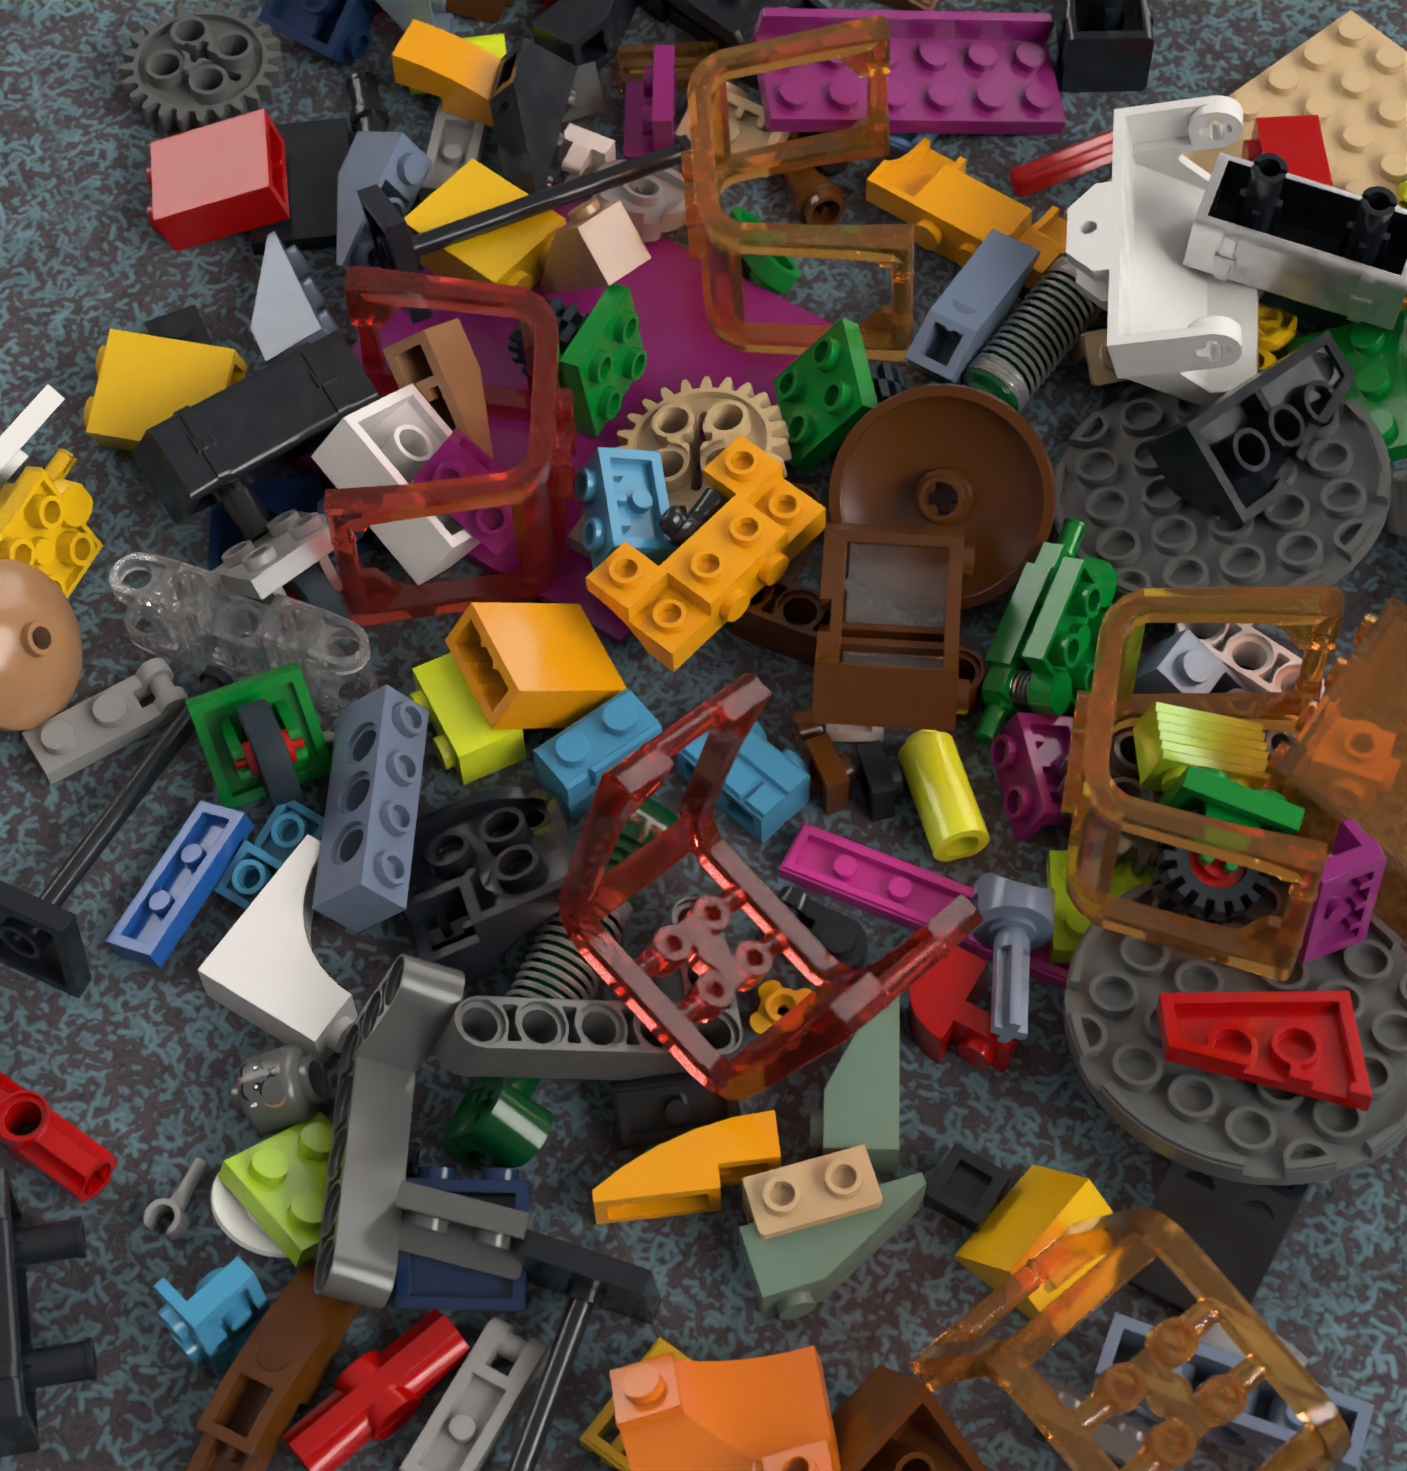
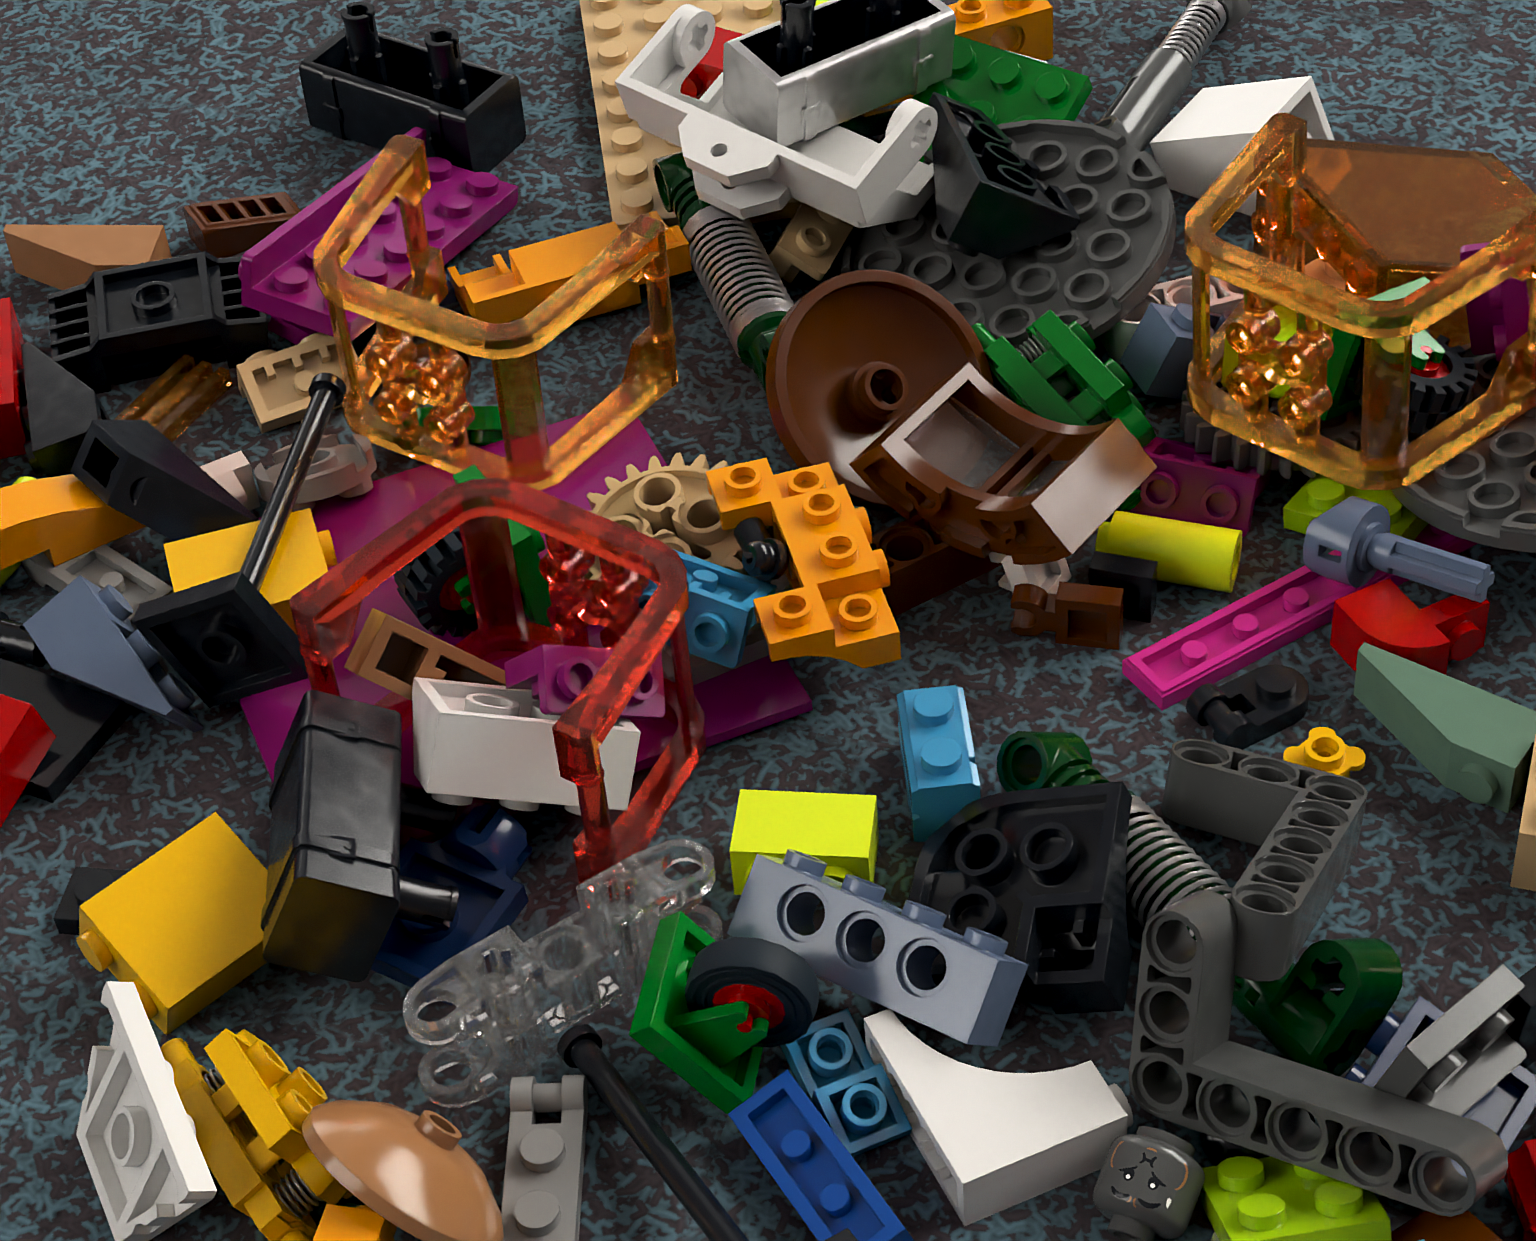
camera: 55 degrees left, 15 degrees down
(286, 562) = (522, 871): light grey plate -> none
(287, 303) = (189, 778): slope -> none
(533, 663) = (810, 752): light orange brick -> none
(593, 248) = (397, 469): medium nougat slope -> none
(651, 106) = (224, 415): magenta bracket -> none
(665, 1107) = (1381, 873): black plate -> none
(690, 1170) = (1466, 887): light orange slope -> none
(762, 785) = (1043, 672): dark azure brick -> none
(825, 1018) = (1209, 717): clear red windscreen -> none
(830, 392) = (694, 409): green plate -> none
(971, 308) = (704, 324): sand blue slope -> none
(1062, 165) = (568, 177): red axle -> none

